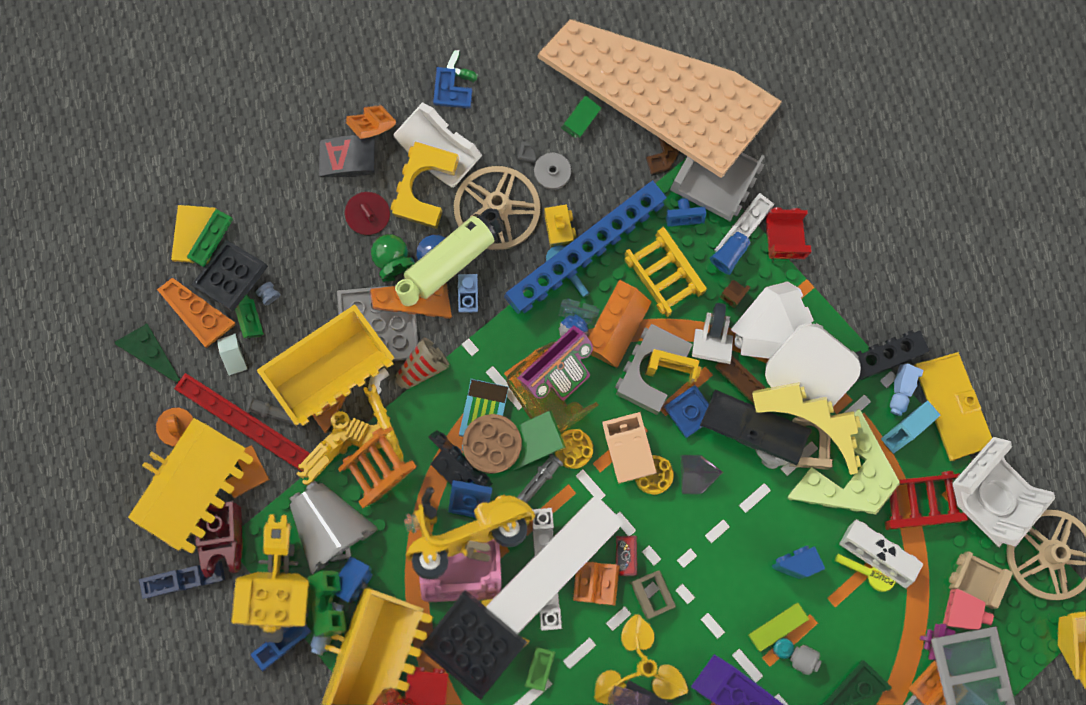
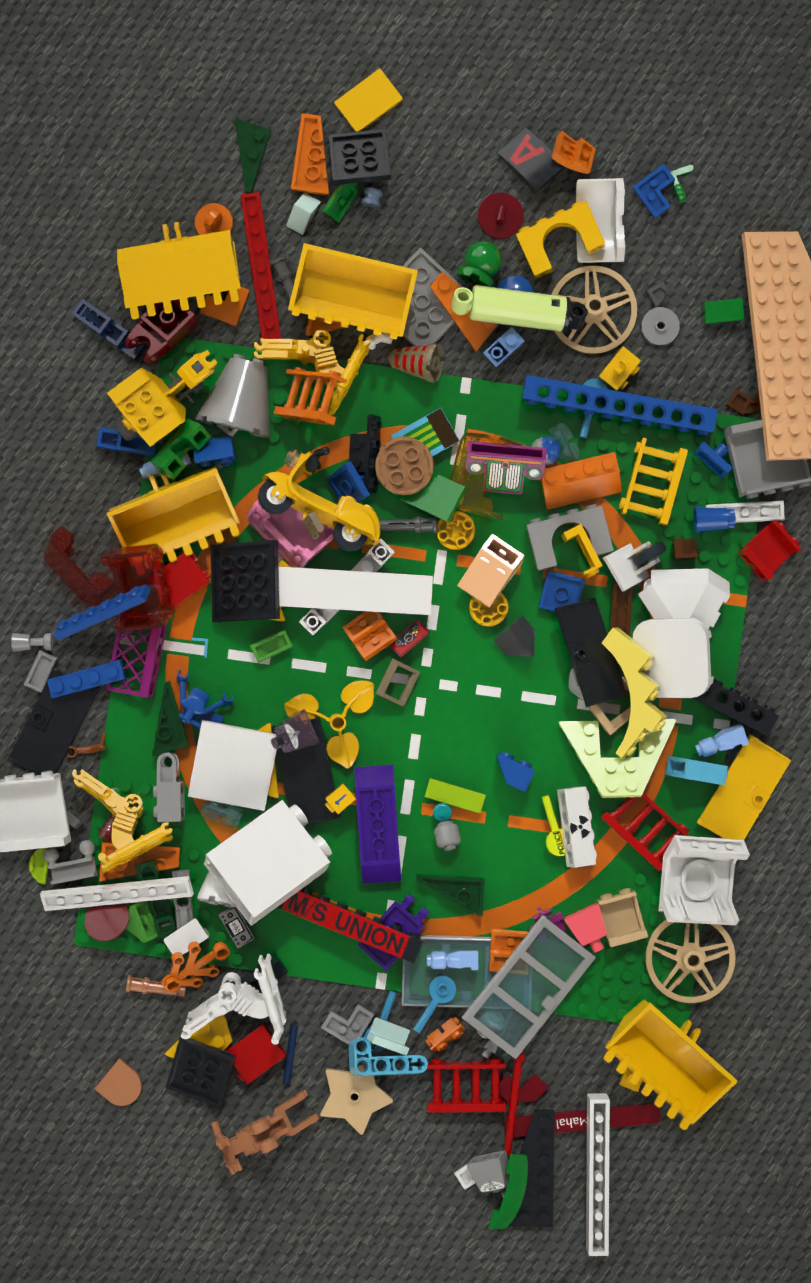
camera: 60 degrees right, 10 degrees up
(209, 238) = (375, 115): green tile -> none

